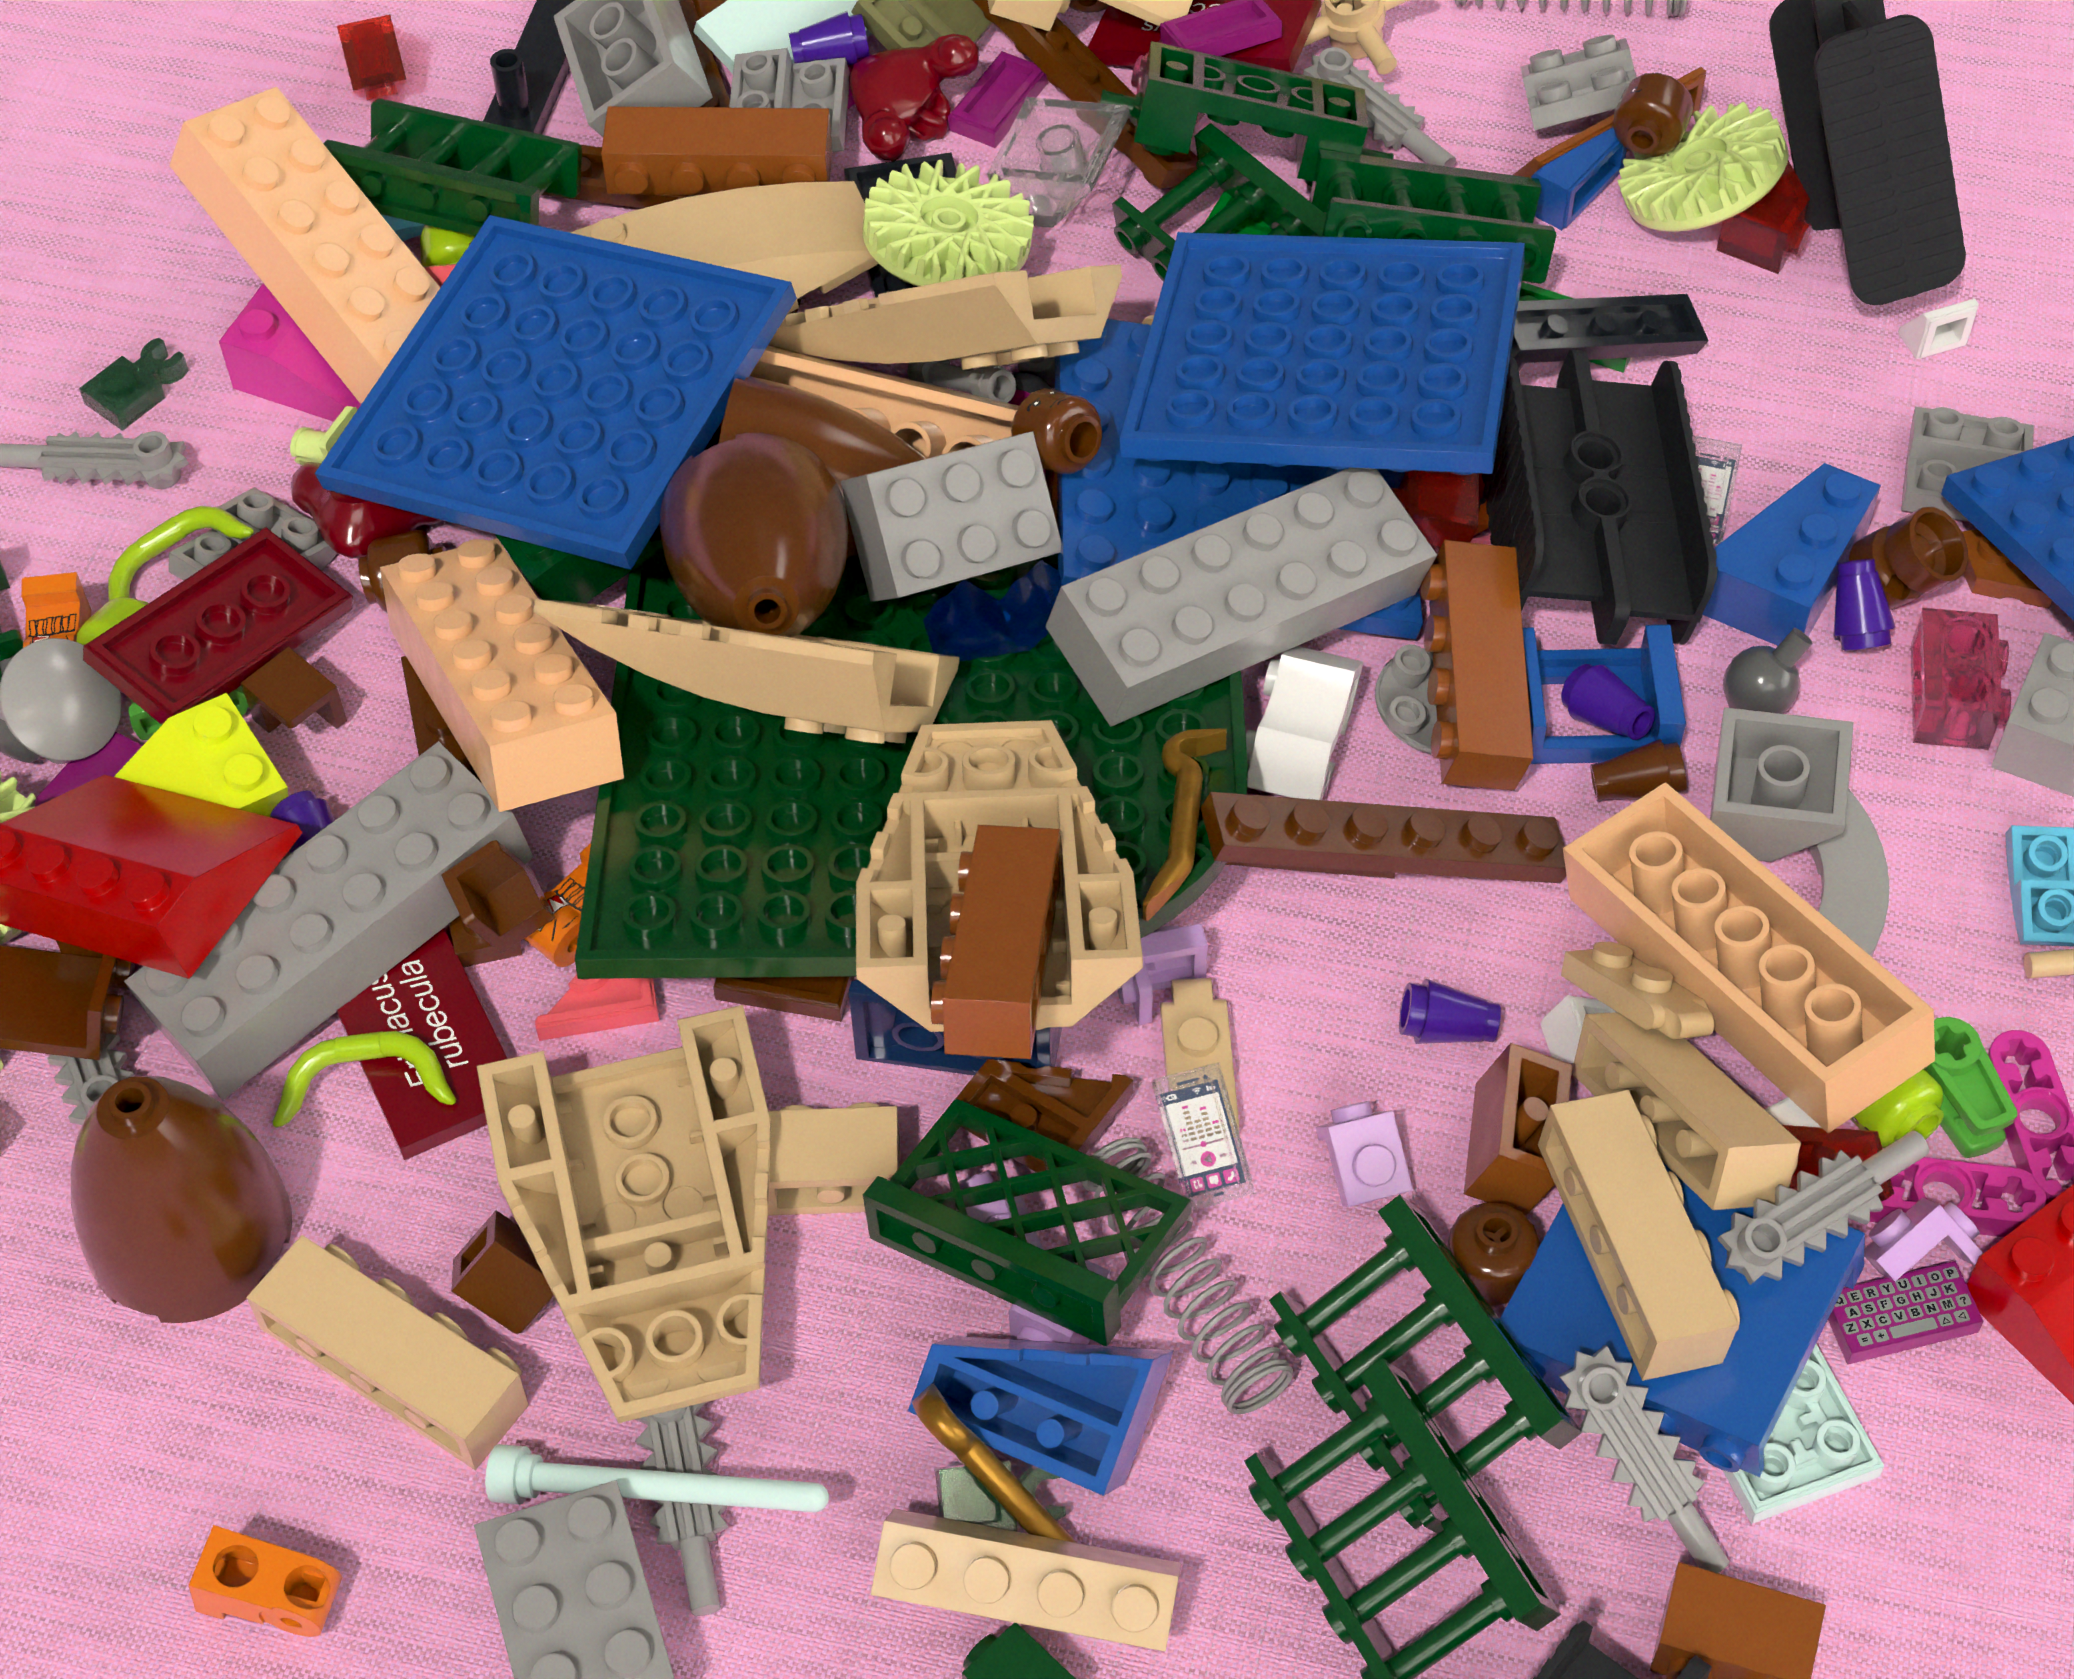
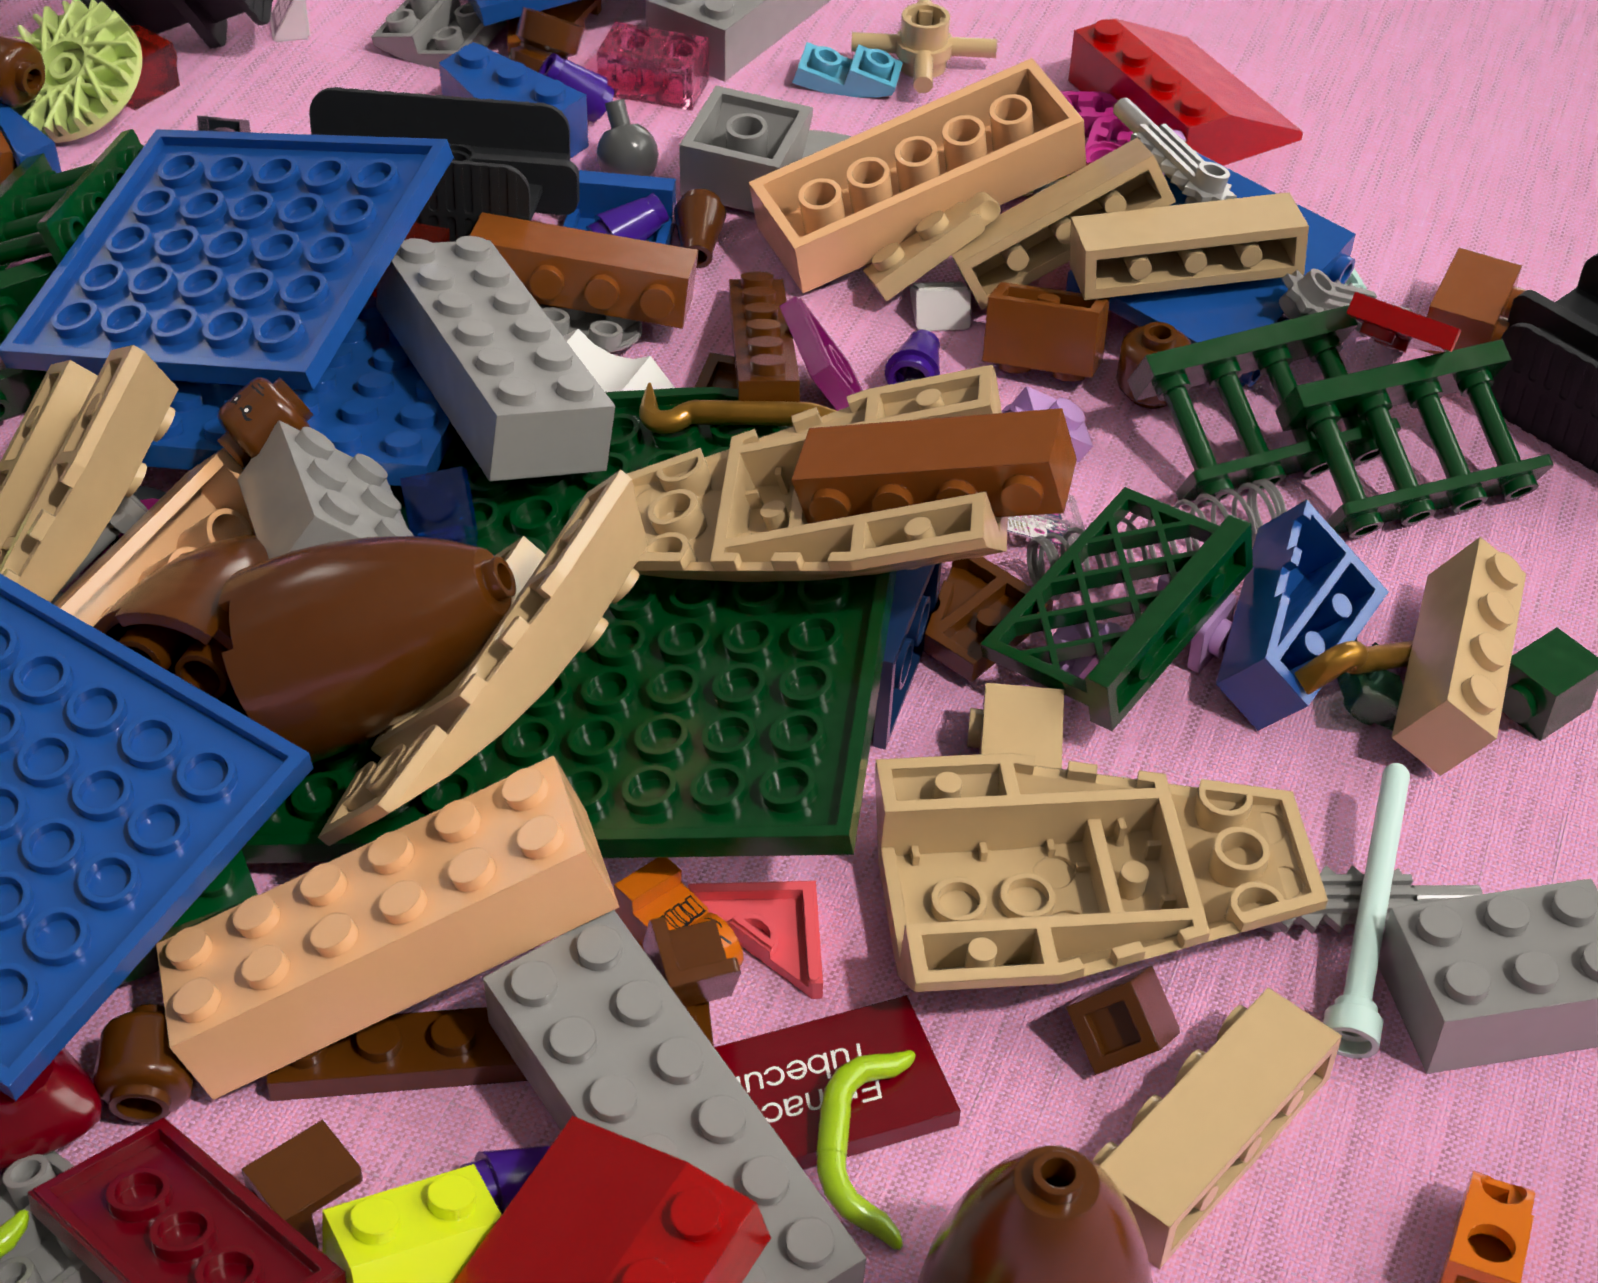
camera: 85 degrees left, 10 degrees down
(1370, 916) = (820, 354): none -> magenta tile
(1556, 1494) = (1399, 327): none -> red wing

